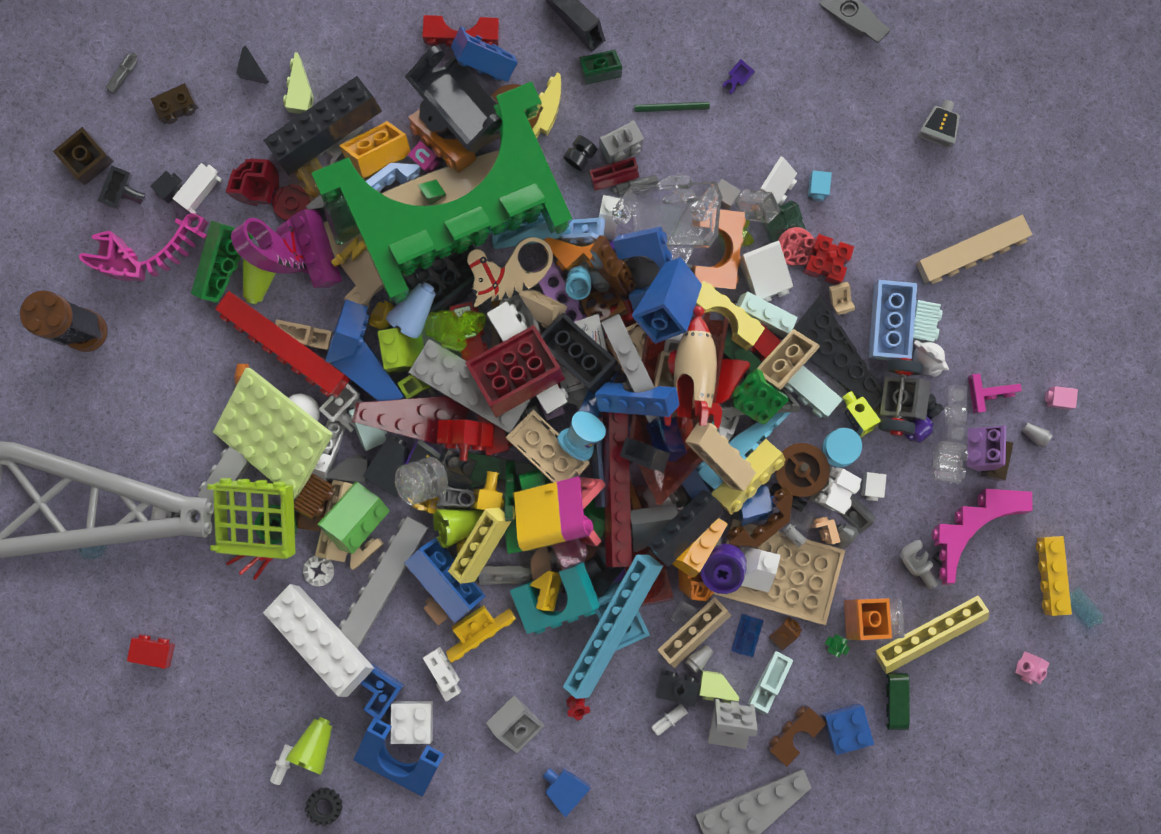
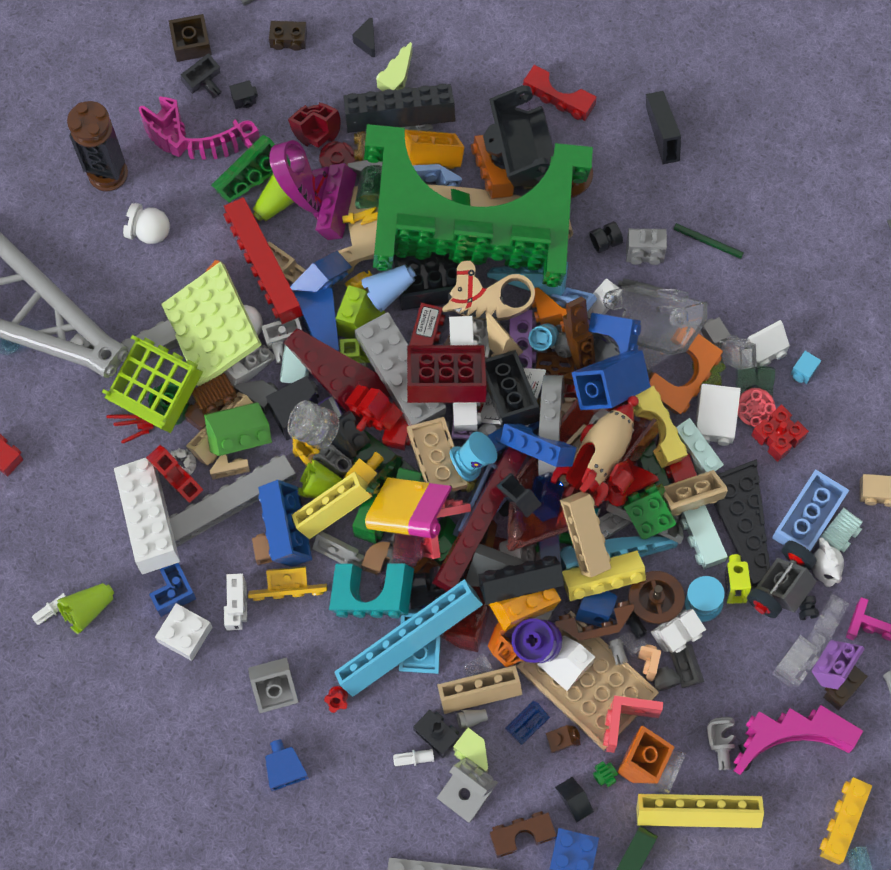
camera: 35 degrees right, 15 degrees down
(155, 365) = (148, 224): none -> white tile
(197, 187) = (267, 106): white brick -> none
(315, 587) = (174, 473): none -> red arch
(315, 815) = (56, 655): black tyre -> none
(374, 756) = (134, 641): blue arch -> none
(424, 157) = (470, 175): dark pink brick -> none
(451, 329) = (410, 315): clear neon green beam -> none
(482, 56) = (566, 119): blue wedge -> none
(549, 106) = (599, 188): light yellow slope -> none
(549, 585) = (372, 576): yellow slope -> none
(600, 67) = (662, 179): dark green slope -> none
(614, 174) = (626, 267): dark red piece -> none
(725, 392) = (618, 483): none -> red panel
(740, 74) = (783, 243): dark purple plate -> none
(770, 682) = (524, 774): light aqua slope -> none
(821, 679) = (574, 799): none -> black slope
(823, 598) = (627, 706): none -> coral bracket
(841, 298) = (774, 471): tan bracket -> none
(873, 486) = (716, 649): white brick -> none
(923, 429) = (786, 622): dark purple head -> none

